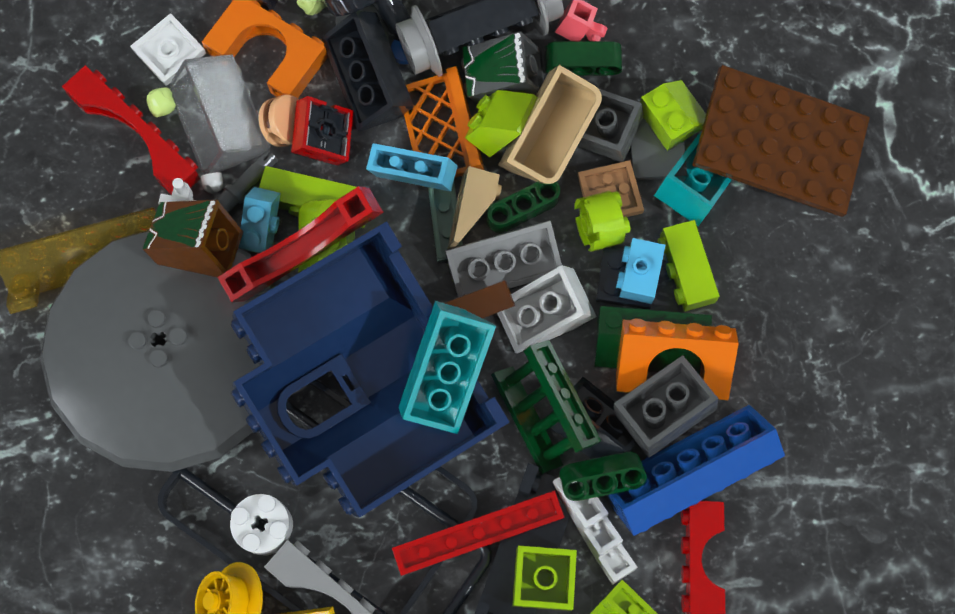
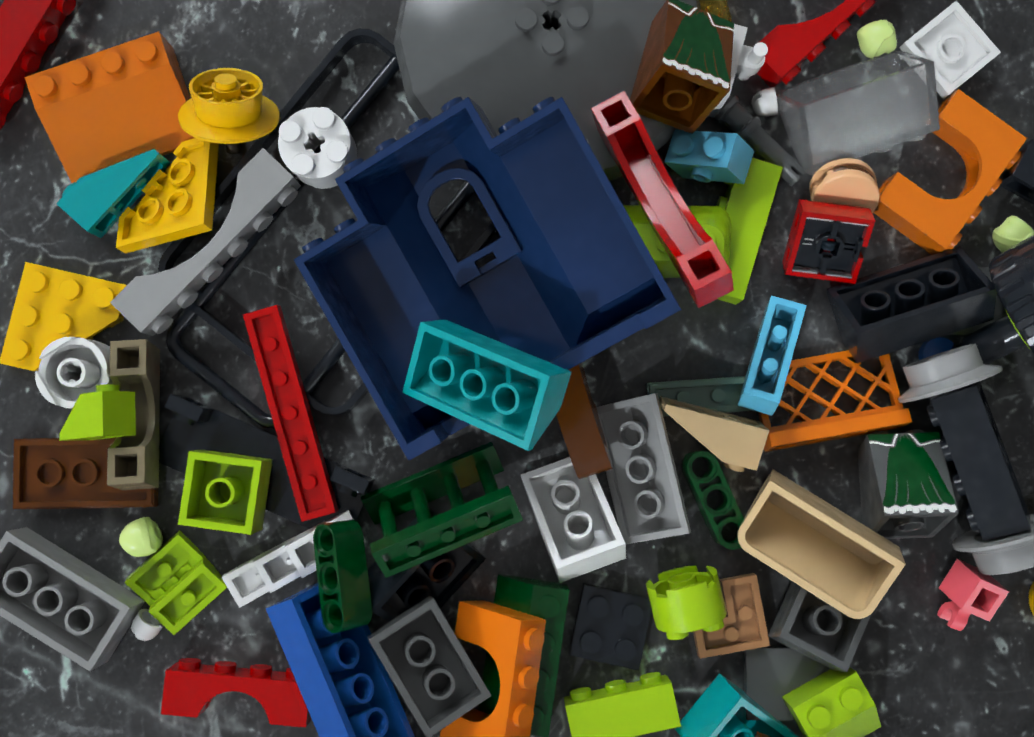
camera: 90 degrees right, 10 degrees up
(499, 120) = (832, 476): lime slope -> none
(585, 57) = (918, 596): dark green beam -> none
(641, 270) = (614, 648): medium azure brick -> none

